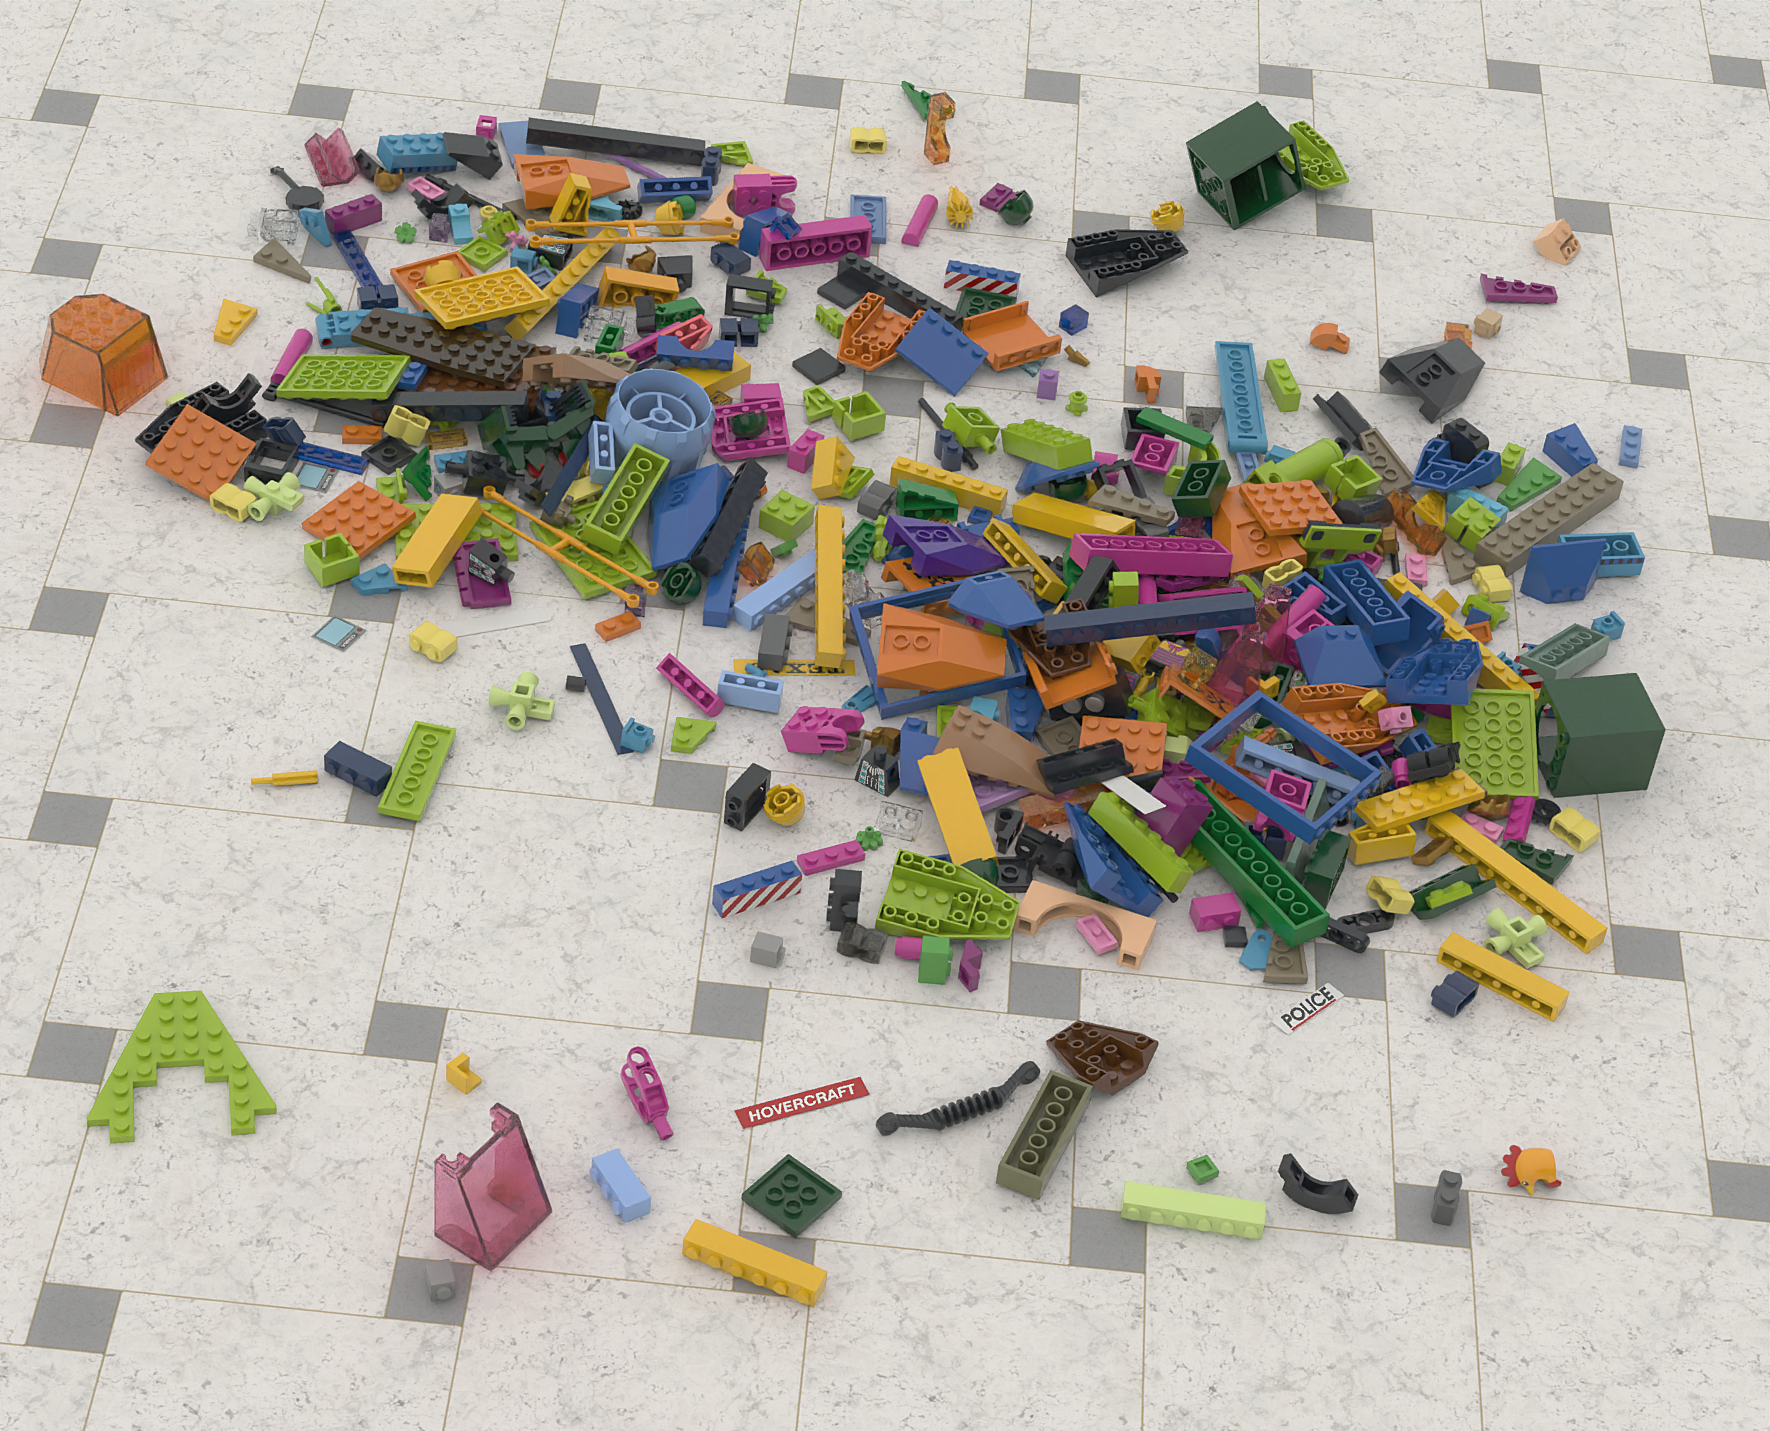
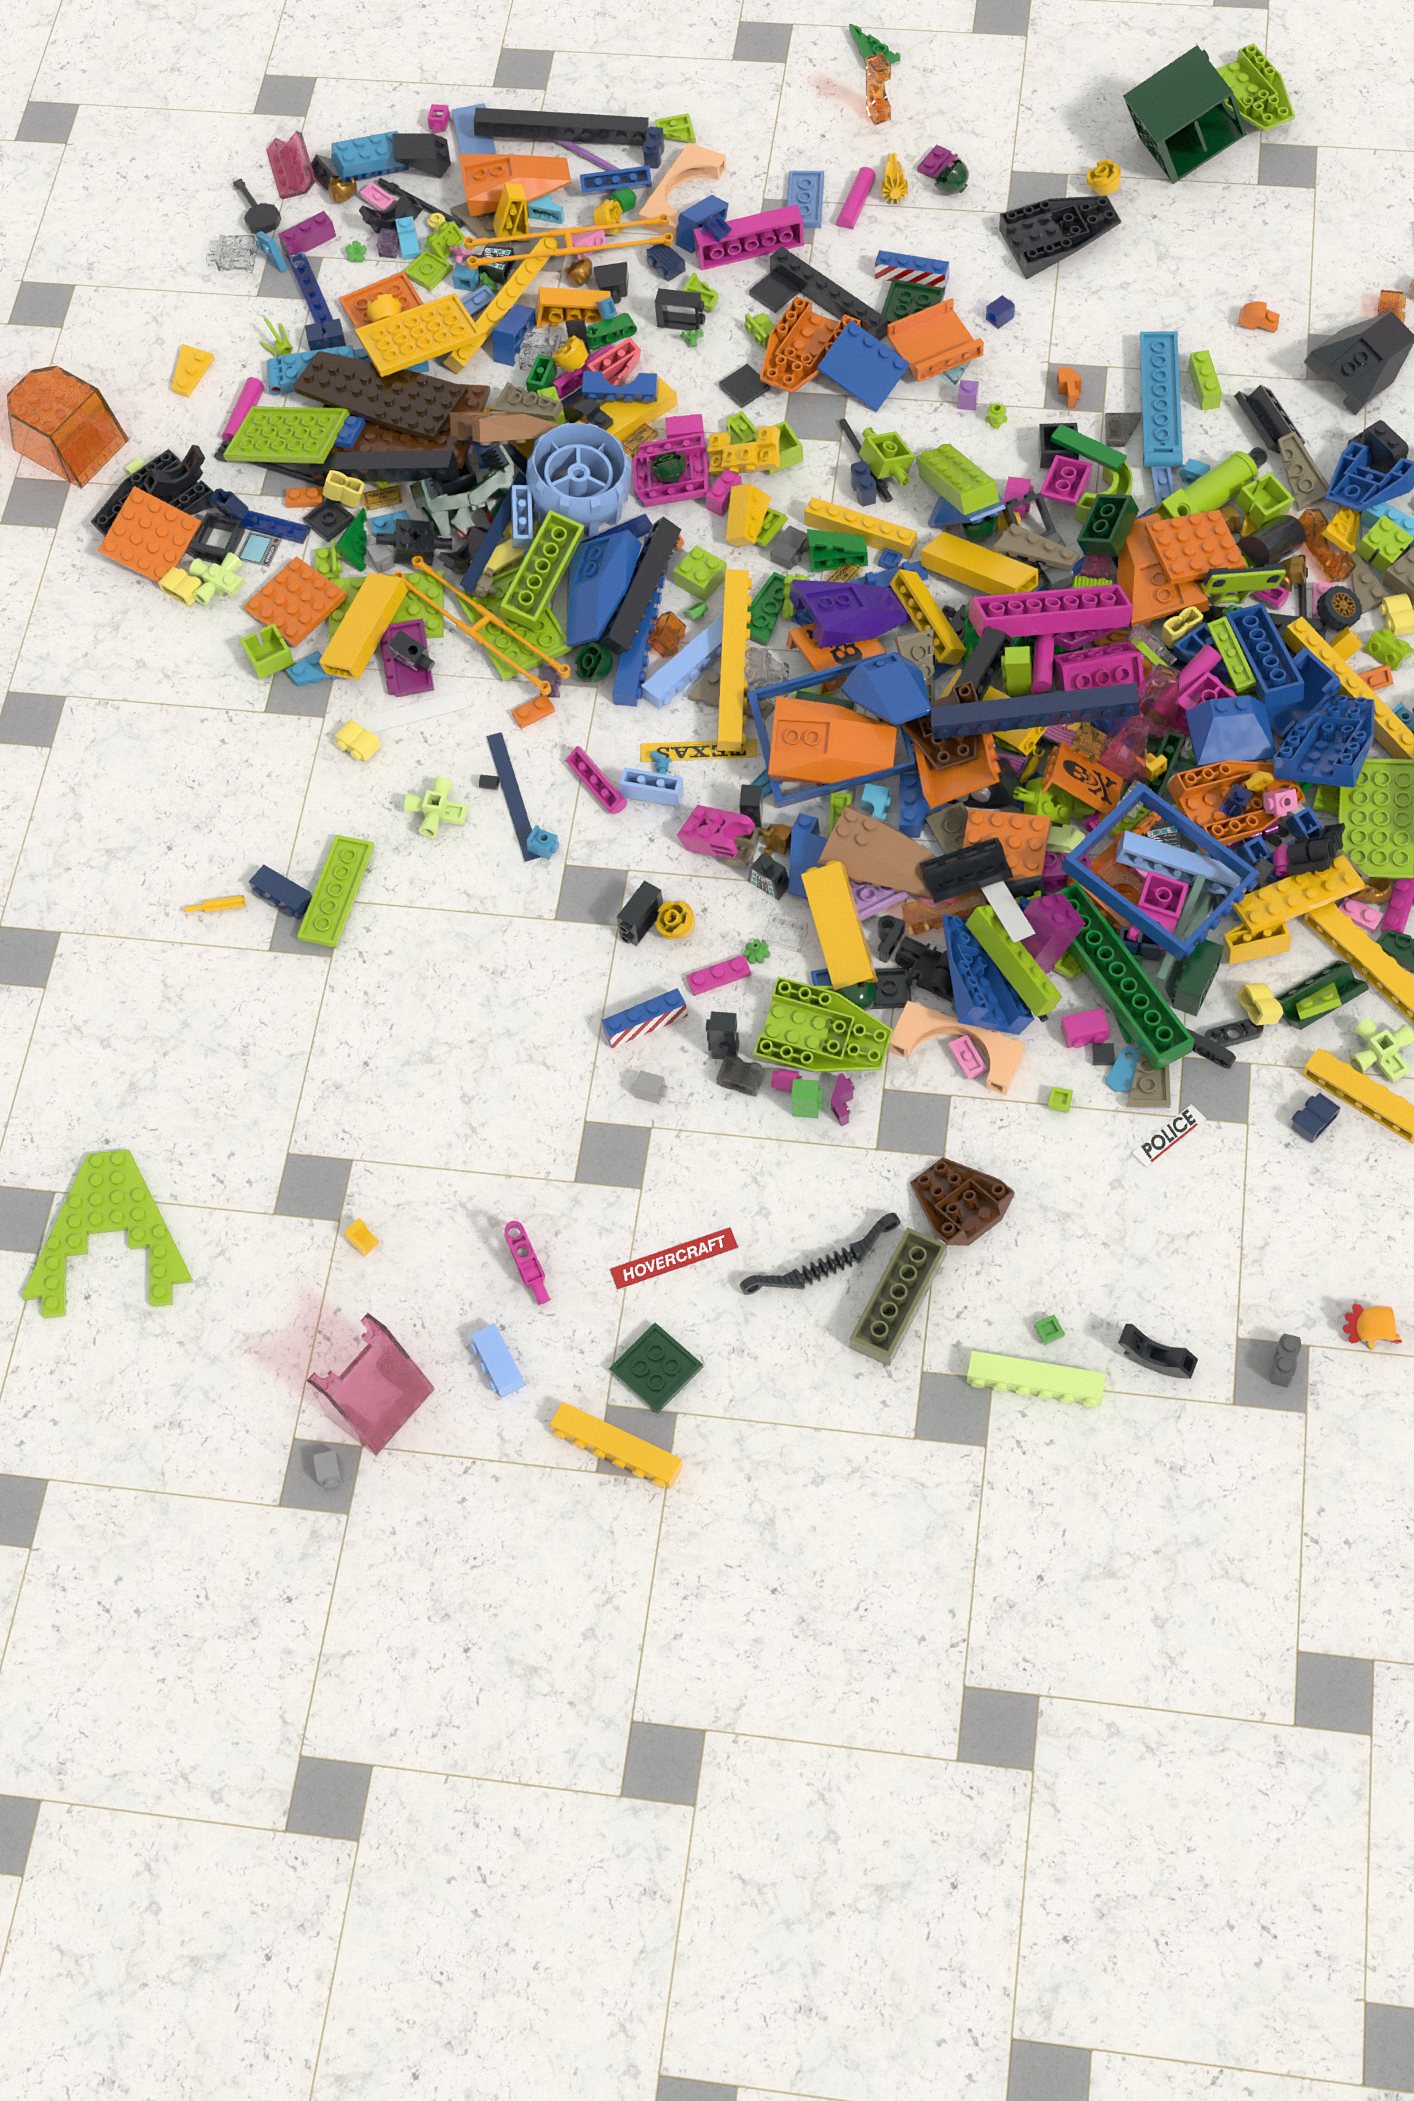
camera: 15 degrees right, 20 degrees up
(277, 258) = (236, 292): dark tan wing -> none
(338, 633) = (273, 732): sticker -> none
(635, 209) = (577, 208): black gear -> none
(642, 324) = (571, 354): none -> yellow cone
(653, 231) = (587, 239): none -> bright pink brick
(673, 290) = (606, 308): none -> dark azure slope
(690, 733) = (593, 834): lime wing -> none
(746, 327) = (658, 350): dark blue piece -> none
(762, 192) = (700, 179): dark pink brick -> none
(774, 642) = (679, 725): dark grey brick -> none
(827, 418) = (745, 456): none -> yellow bracket
(858, 699) = (752, 803): none -> black brick
(868, 140) = (810, 101): light yellow brick -> none
(1076, 356) = (1000, 356): pearl gold bar -> none
(1195, 972) = (1060, 1099): none -> lime plate
(1335, 596) = (1231, 654): none -> lime plate
(1351, 715) = (1235, 800): none -> clear blue brick
(1432, 851) = (1309, 946): pearl gold plate -> none
(1433, 573) = (1339, 608): none -> black wheel
(1476, 616) = (1379, 658): blue tile -> none

